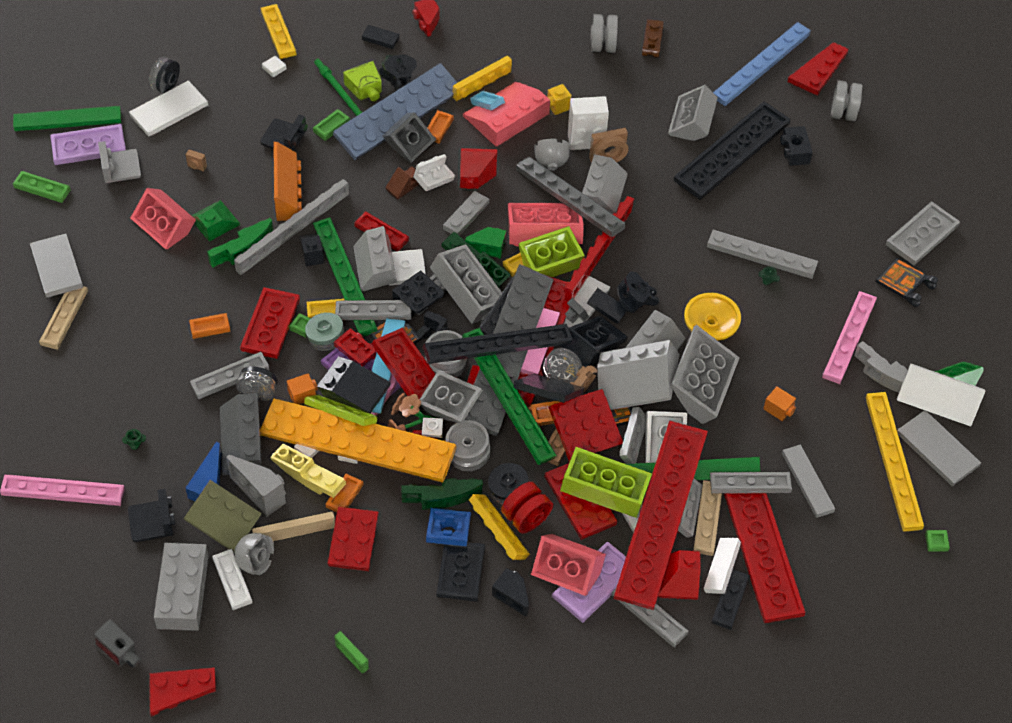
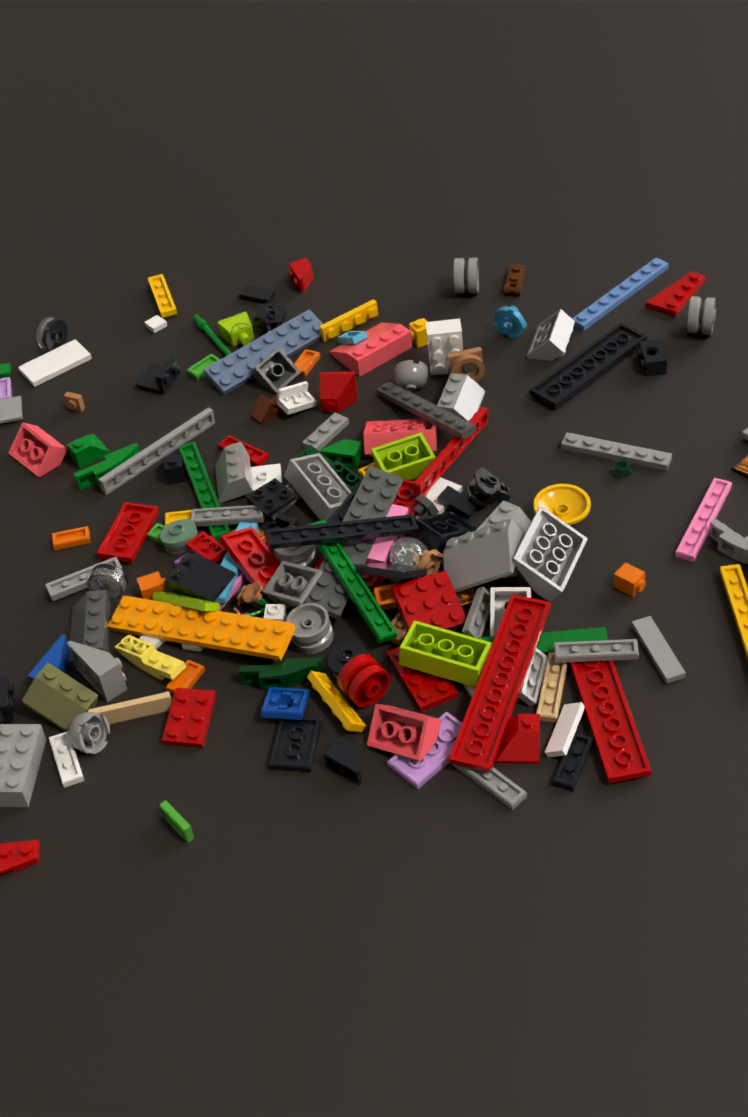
camera: 10 degrees right, 10 degrees down
(286, 182) = (154, 411): orange slope -> none
(656, 99) = (511, 314): none -> dark azure plate

